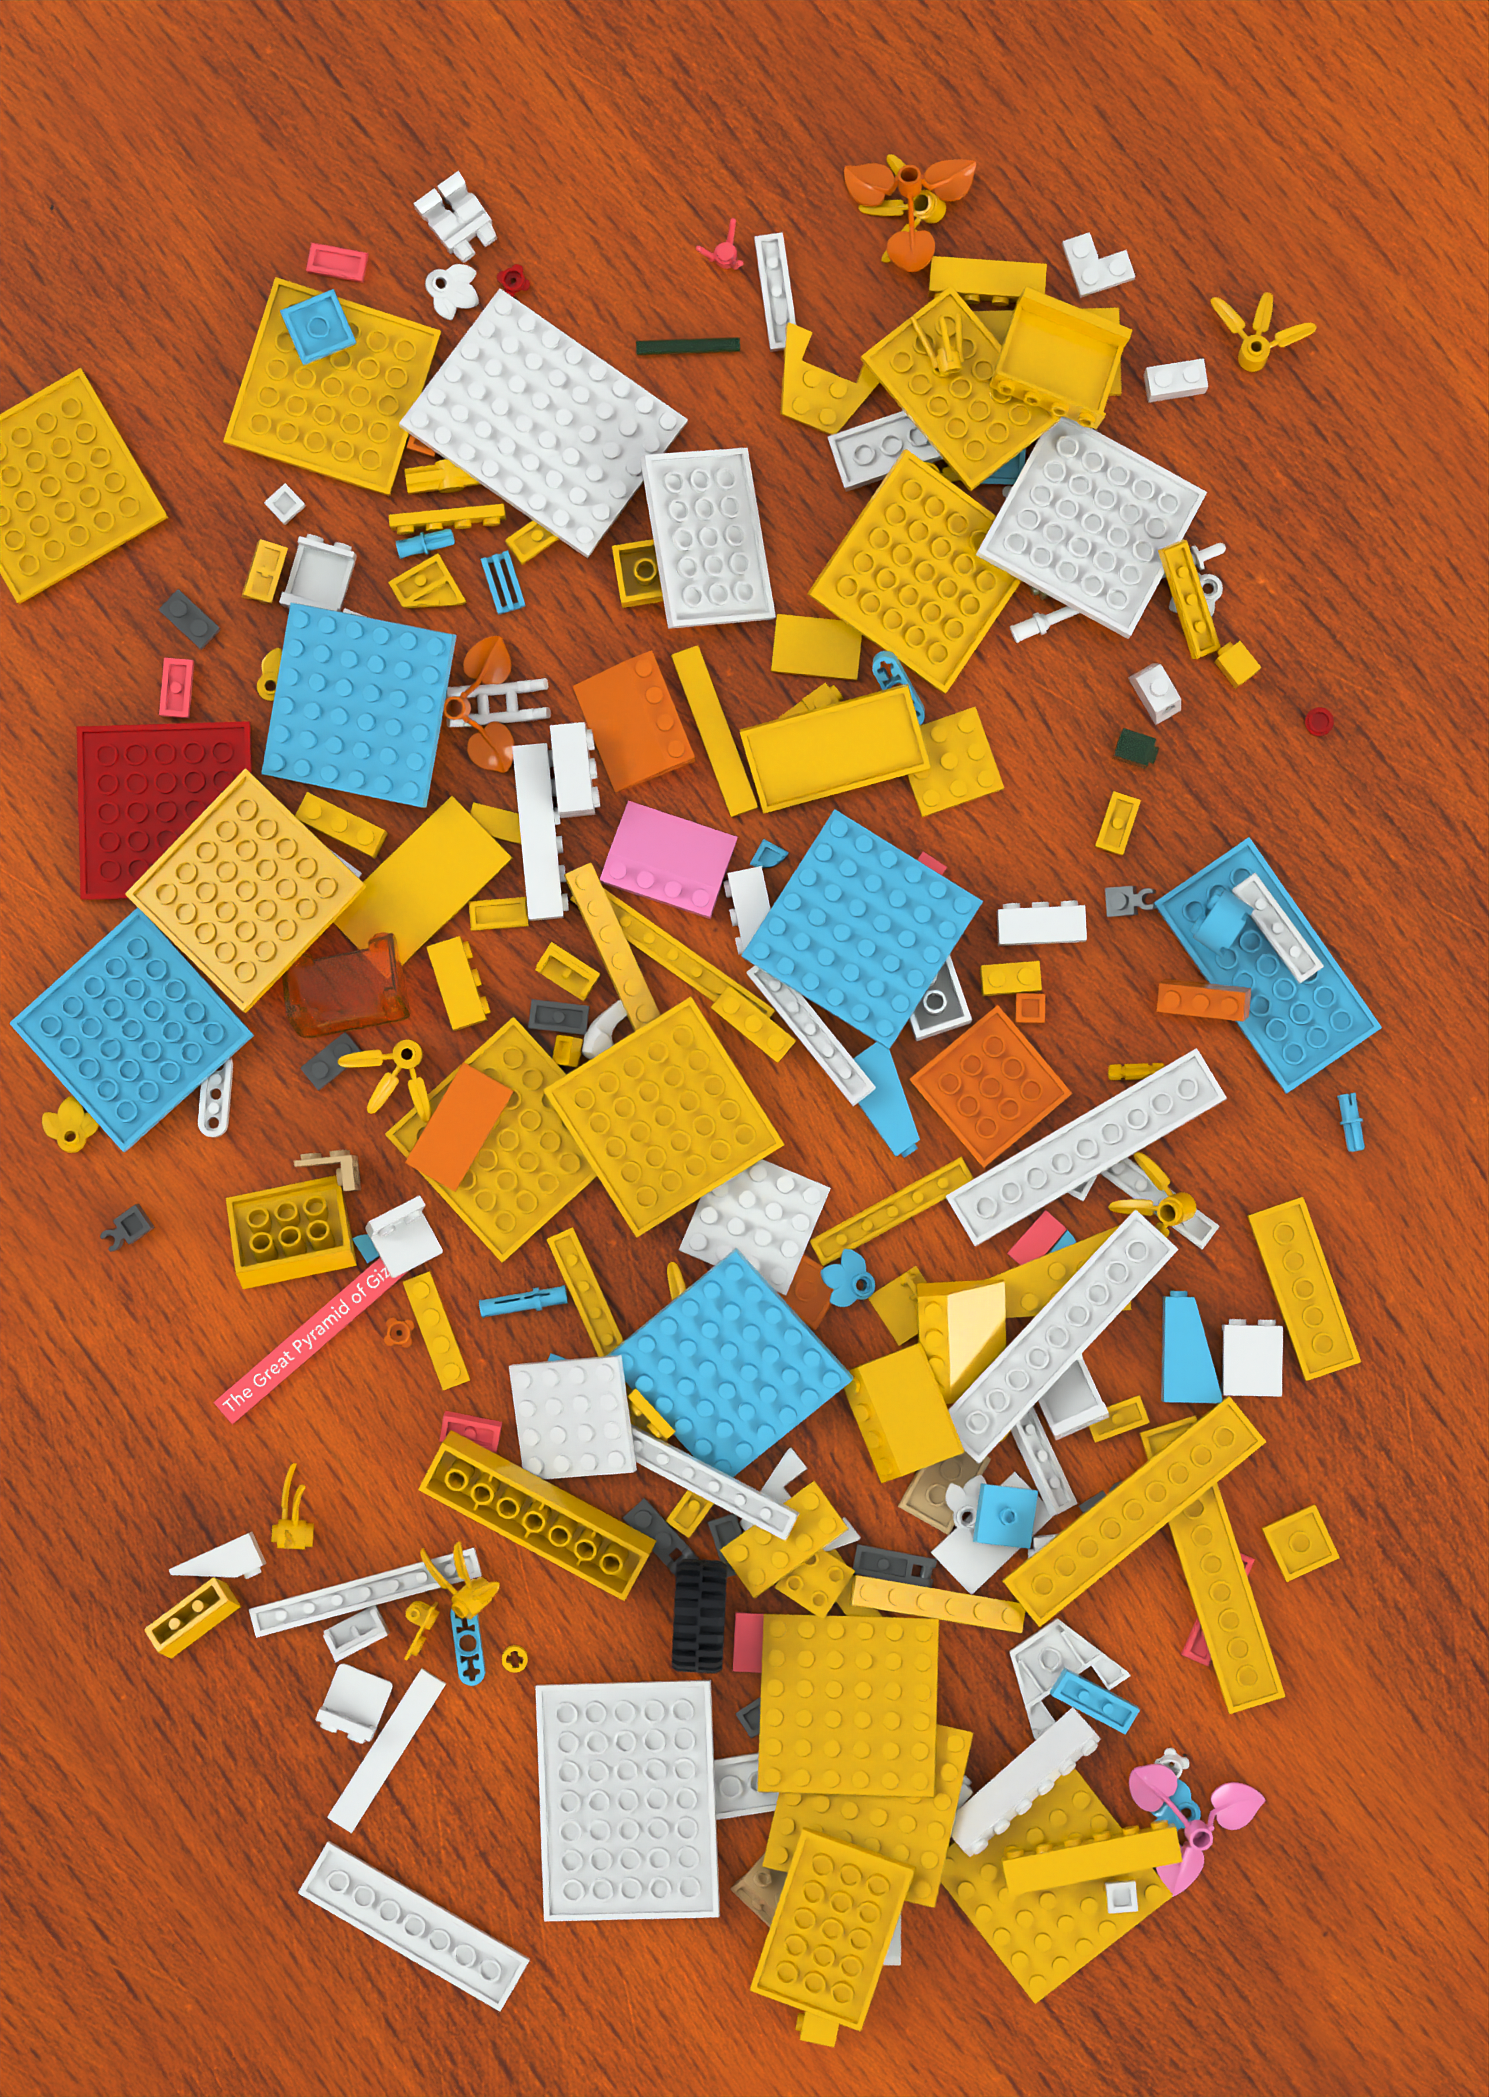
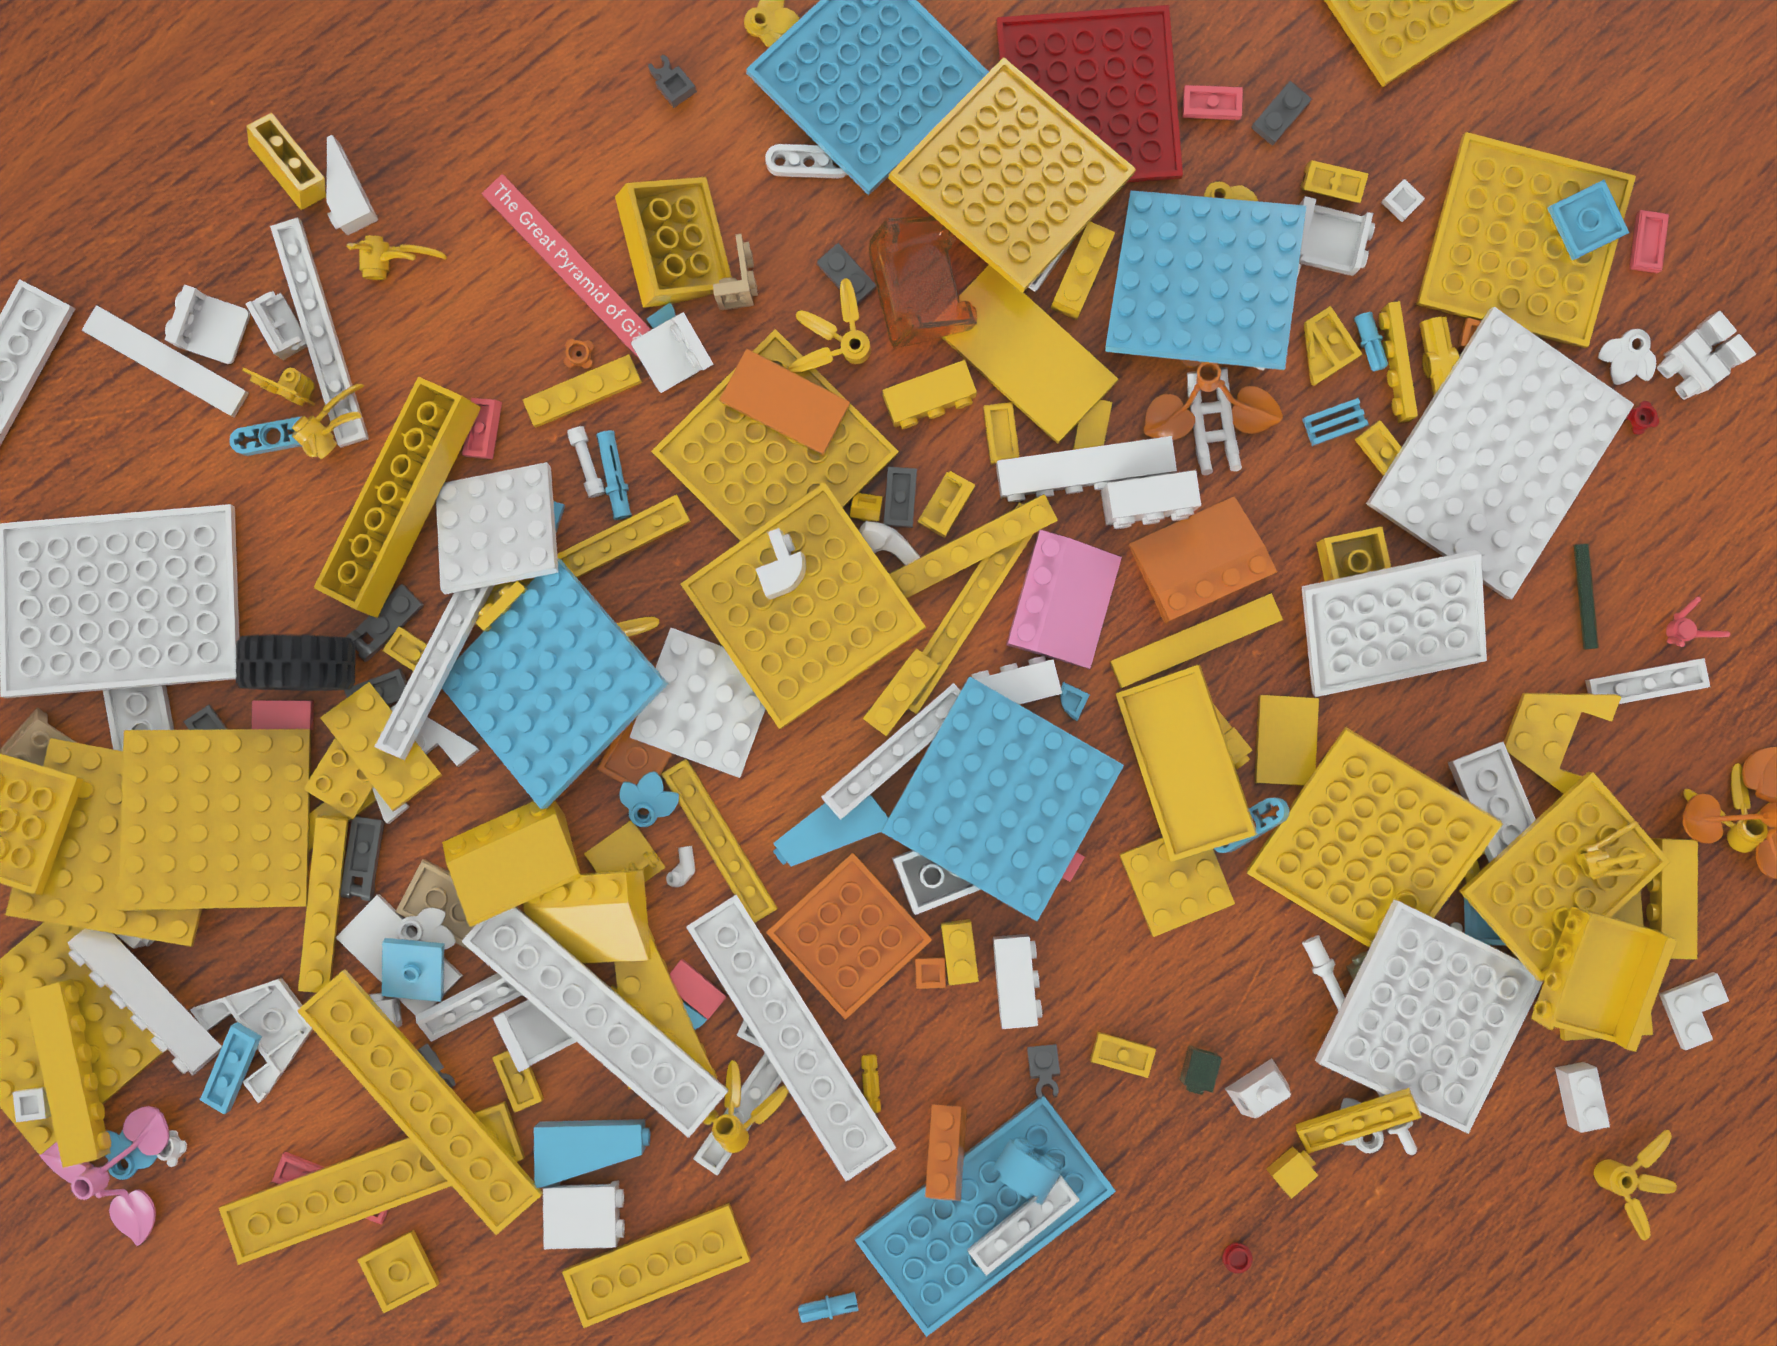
camera: 80 degrees right, 0 degrees up
(508, 1664) = (266, 489): yellow bush -> none
(532, 1321) = (593, 485): none -> white bar
(632, 1130) = (785, 573): none -> white brick
(919, 1247) = (684, 870): none -> white arm

